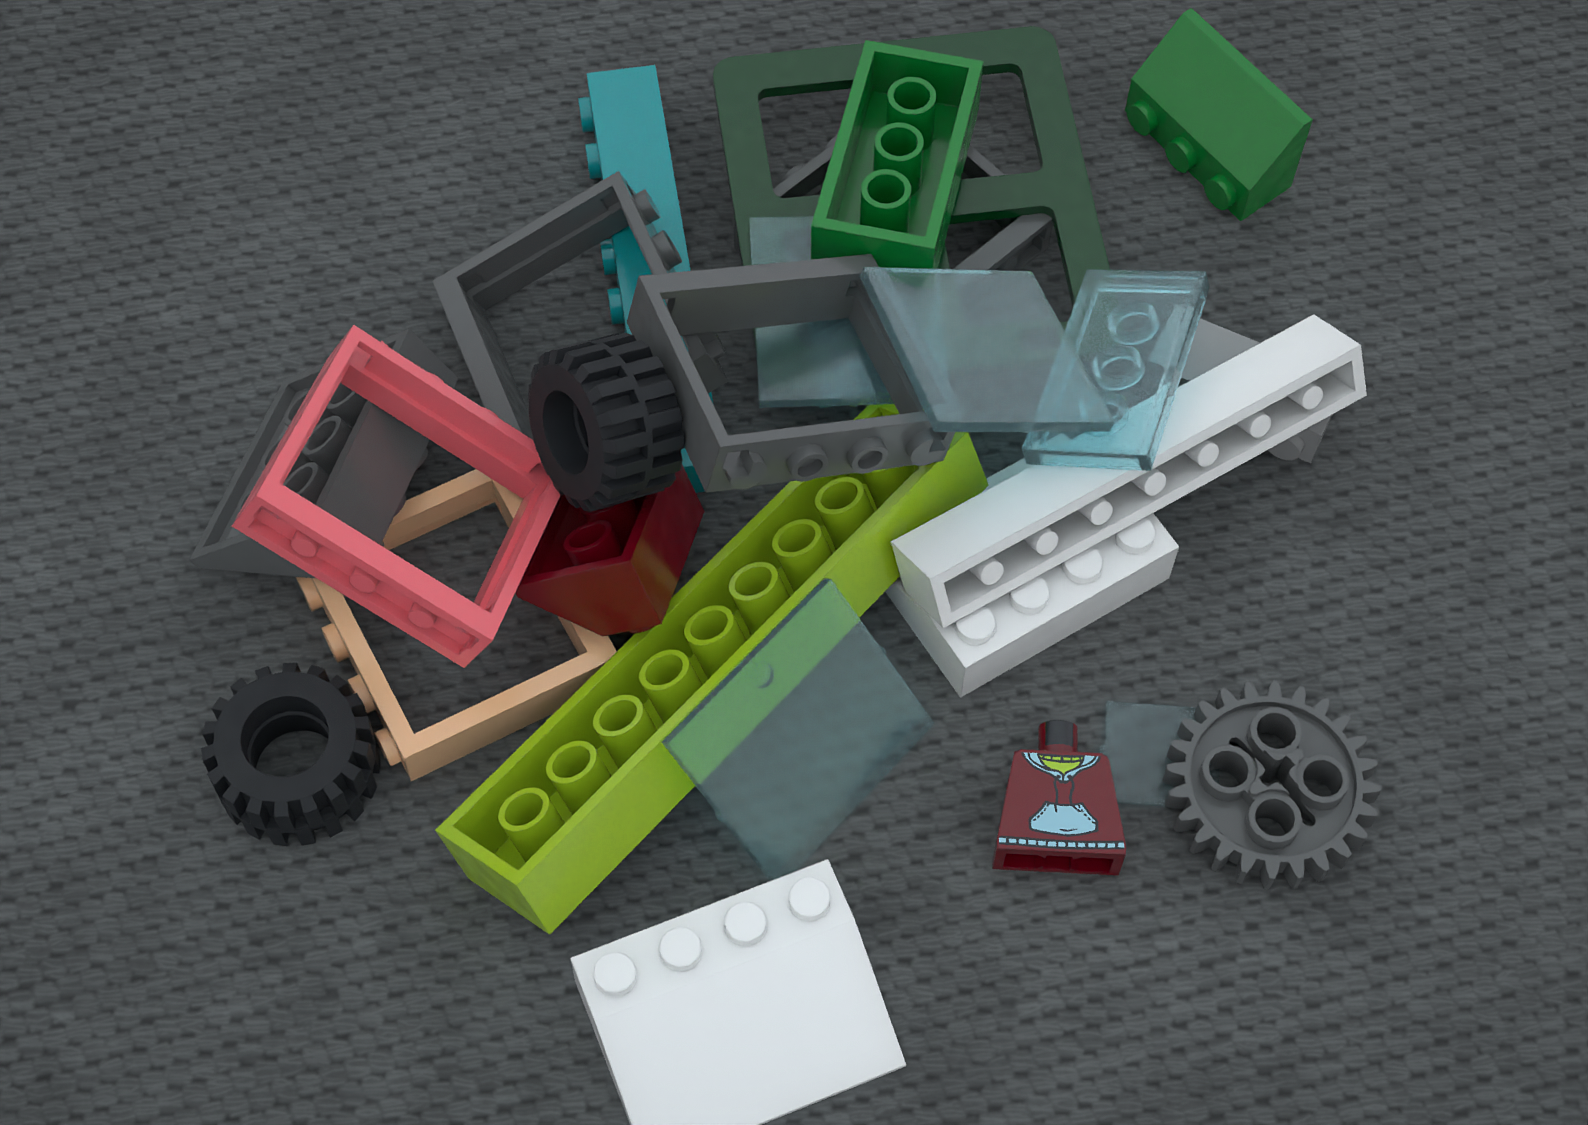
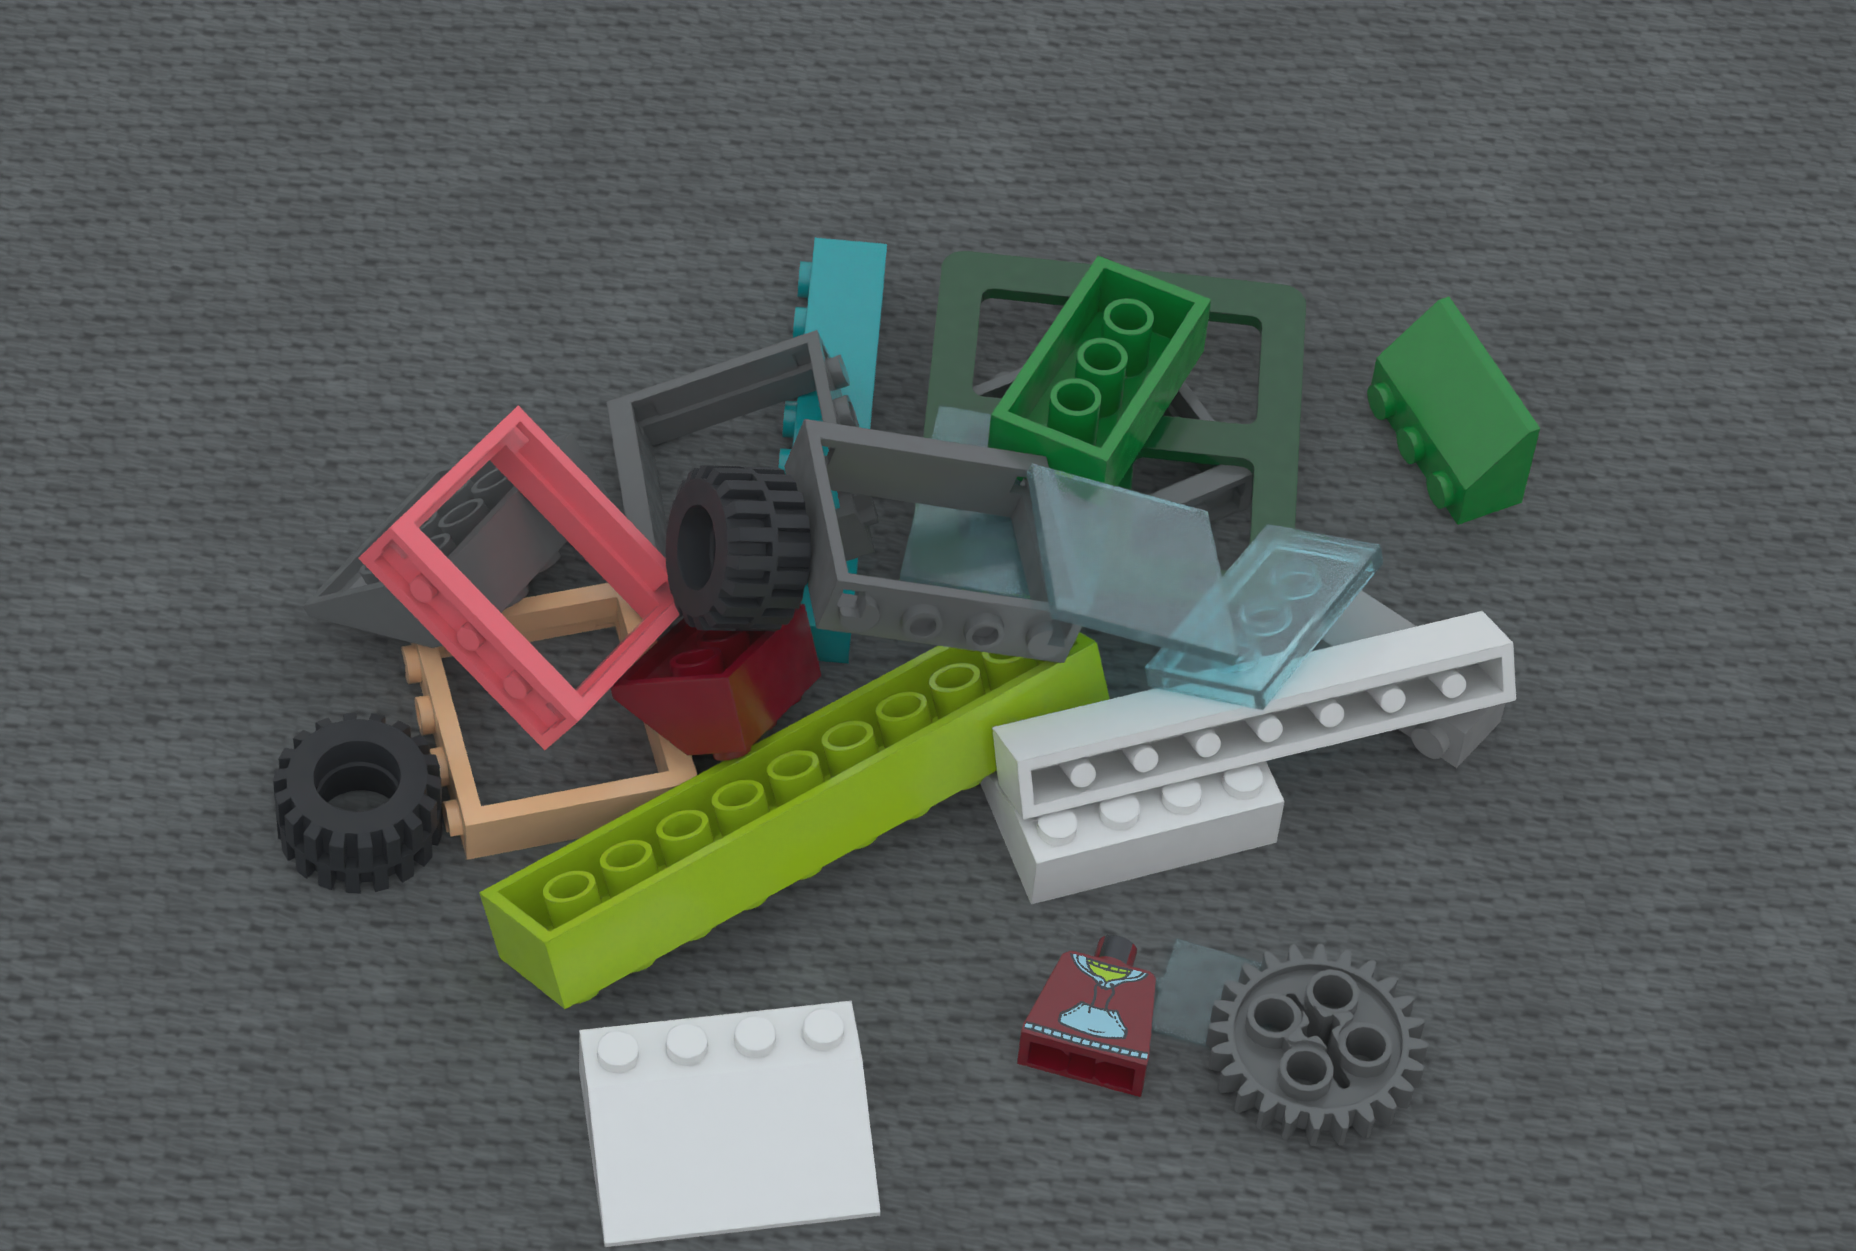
camera: 10 degrees right, 10 degrees down
(799, 732) = (858, 883): clear light blue piece -> none

